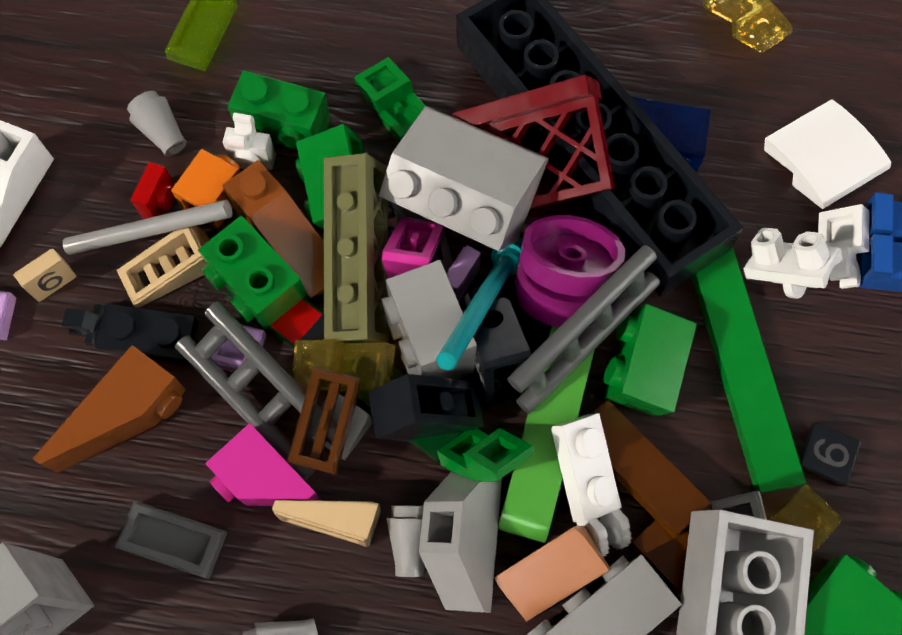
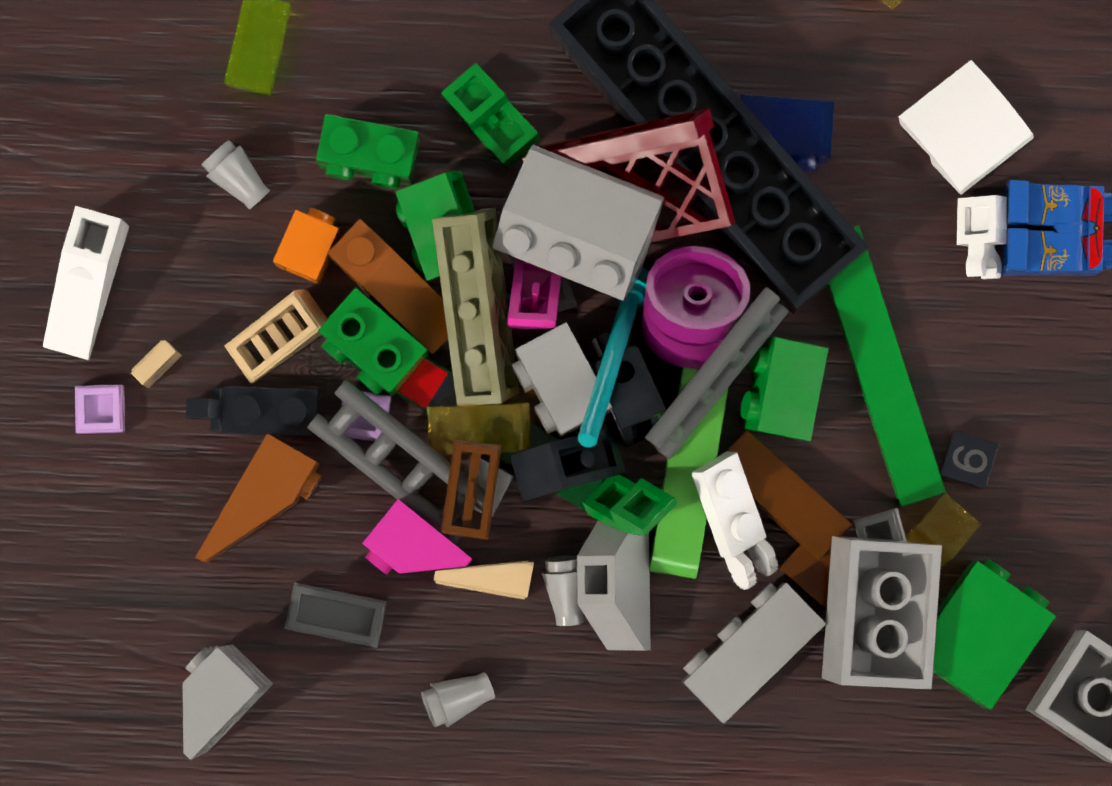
camera: 10 degrees left, 15 degrees up
(148, 227) = (253, 302): light grey bar -> none
(153, 192) = (251, 259): red plate -> none
(247, 145) = (341, 195): white plate -> none
(464, 270) = (586, 314): lavender tile -> none
(552, 572) = (705, 607): nougat slope -> none
(792, 264) = (924, 266): white hips -> none

